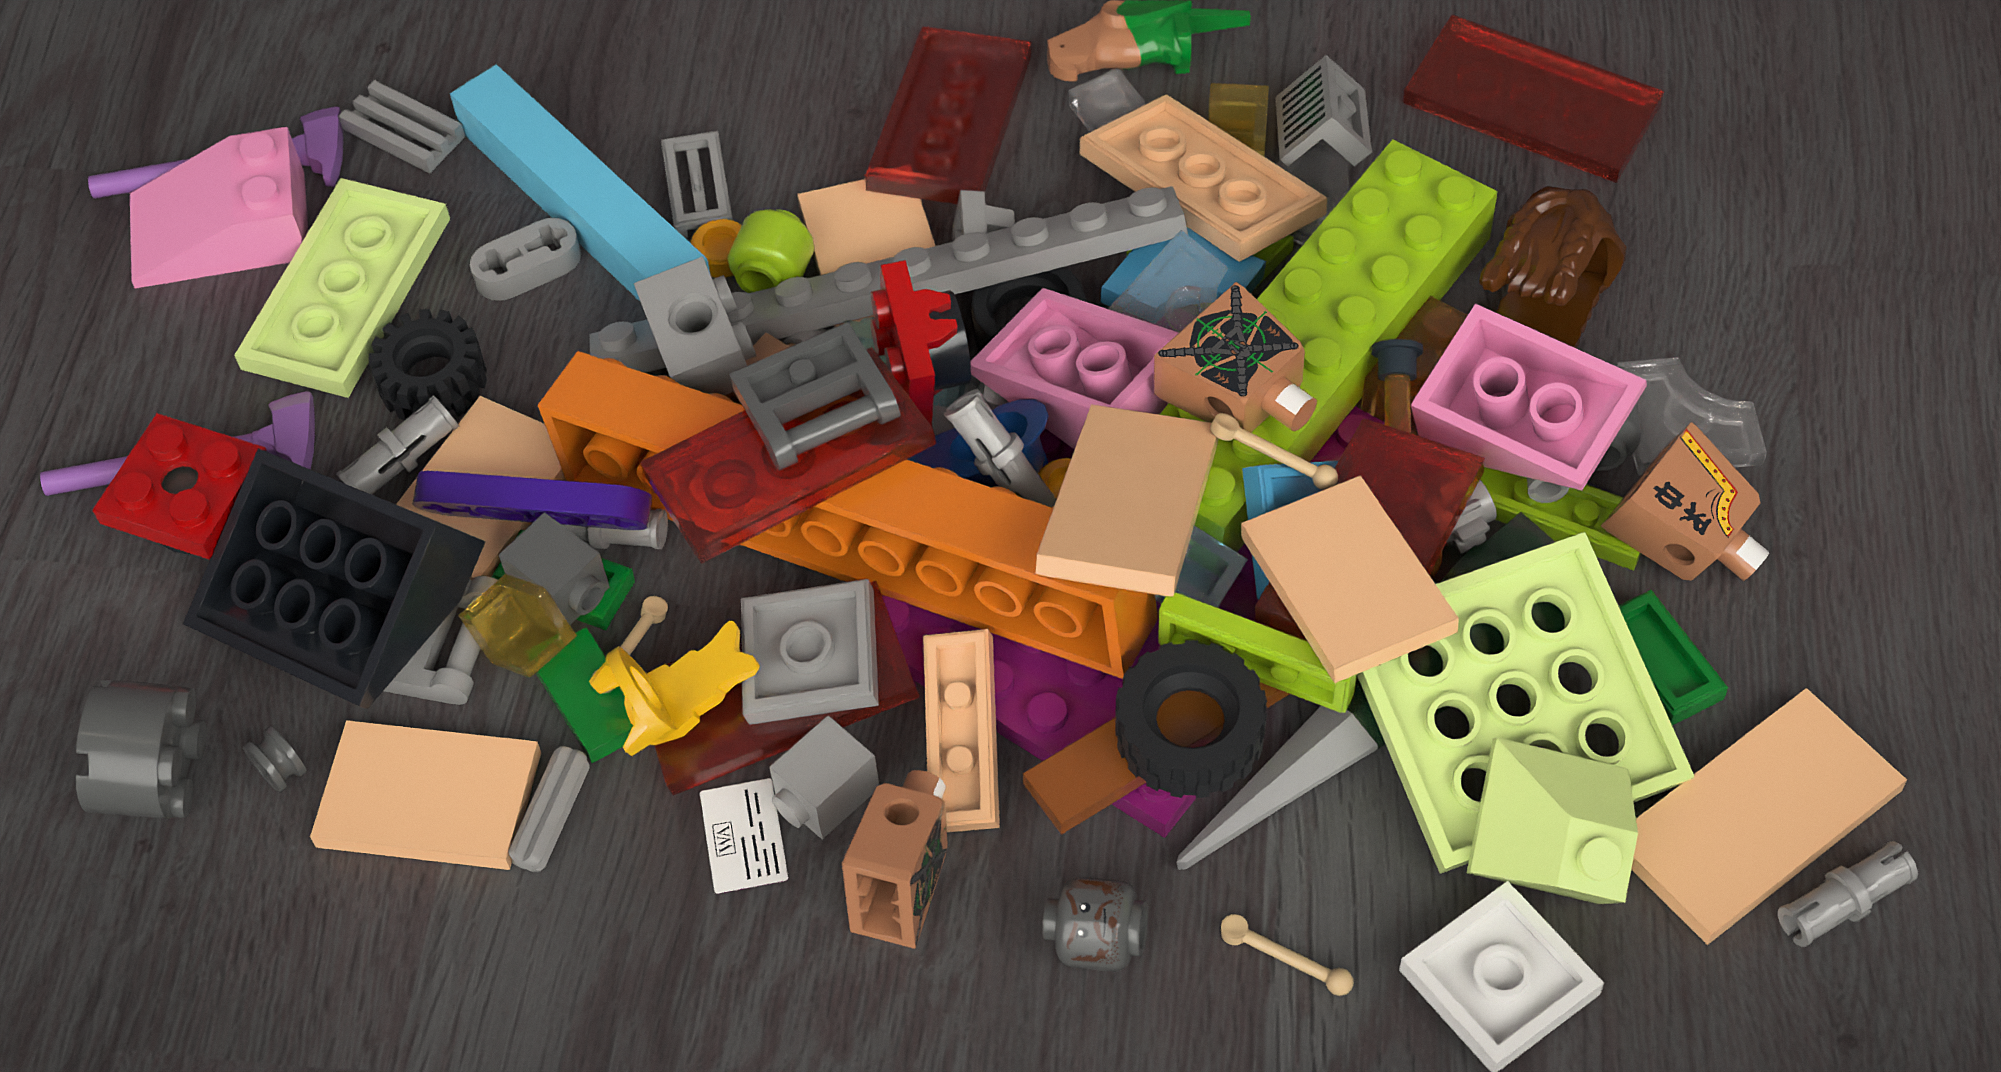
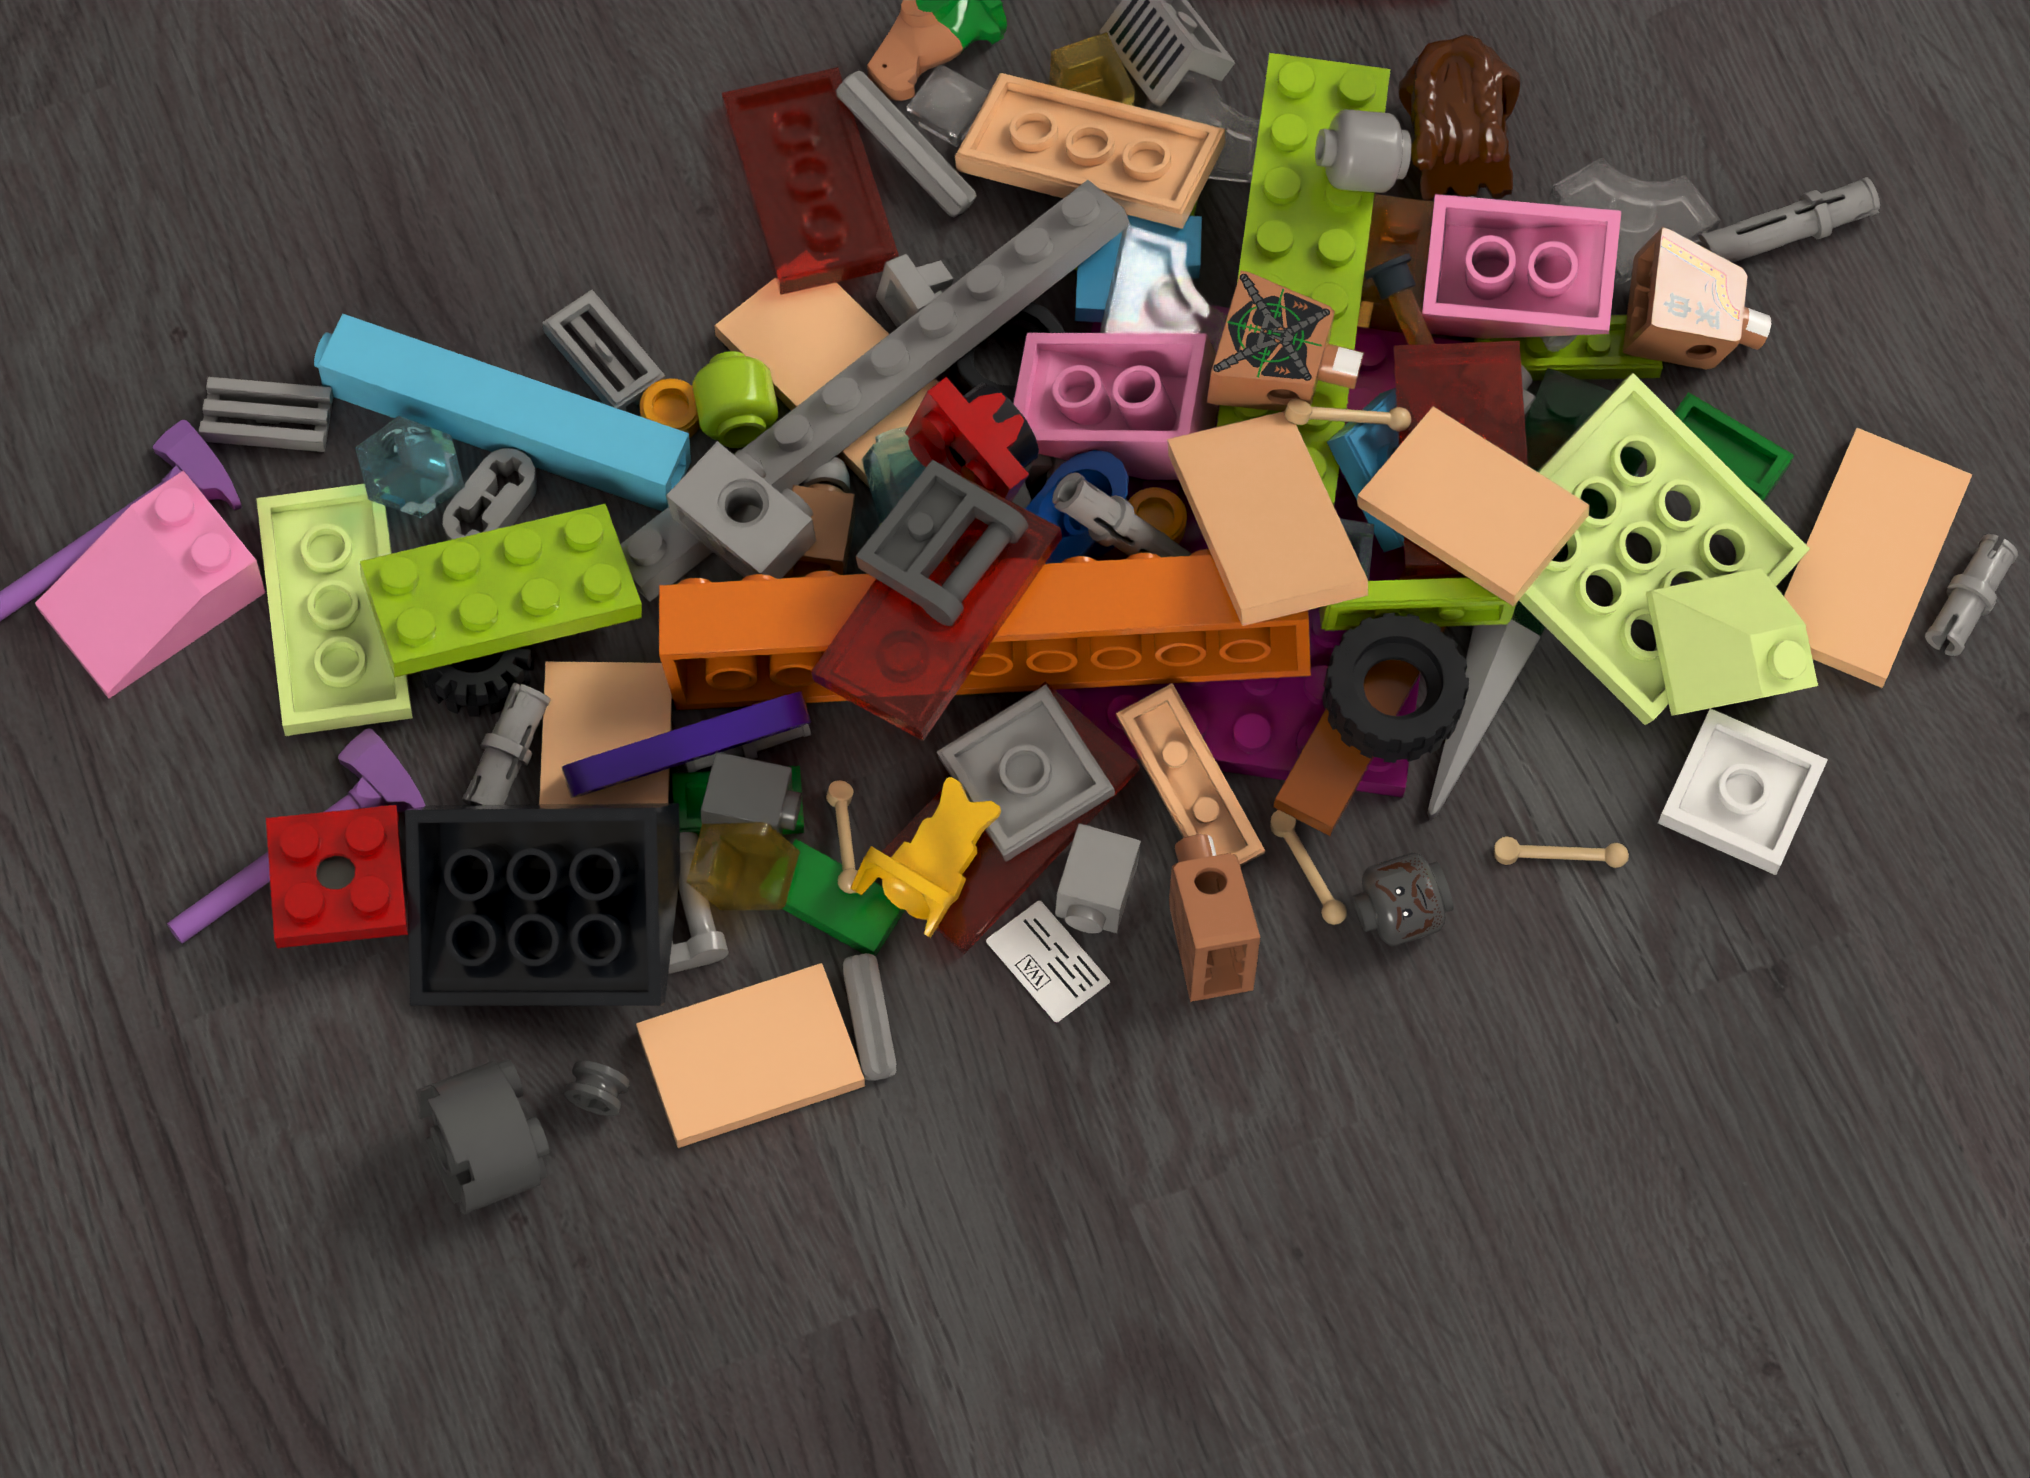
camera: 35 degrees left, 10 degrees up
(467, 316) = (500, 590): none -> lime plate
(470, 199) = (409, 467): none -> clear light blue brick
(1032, 908) = (1284, 826): none -> tan hinge
(1048, 117) = (906, 144): none -> light grey axle
(1420, 235) = (1363, 151): none -> light grey head
(1860, 483) = (1811, 216): none -> light grey pin

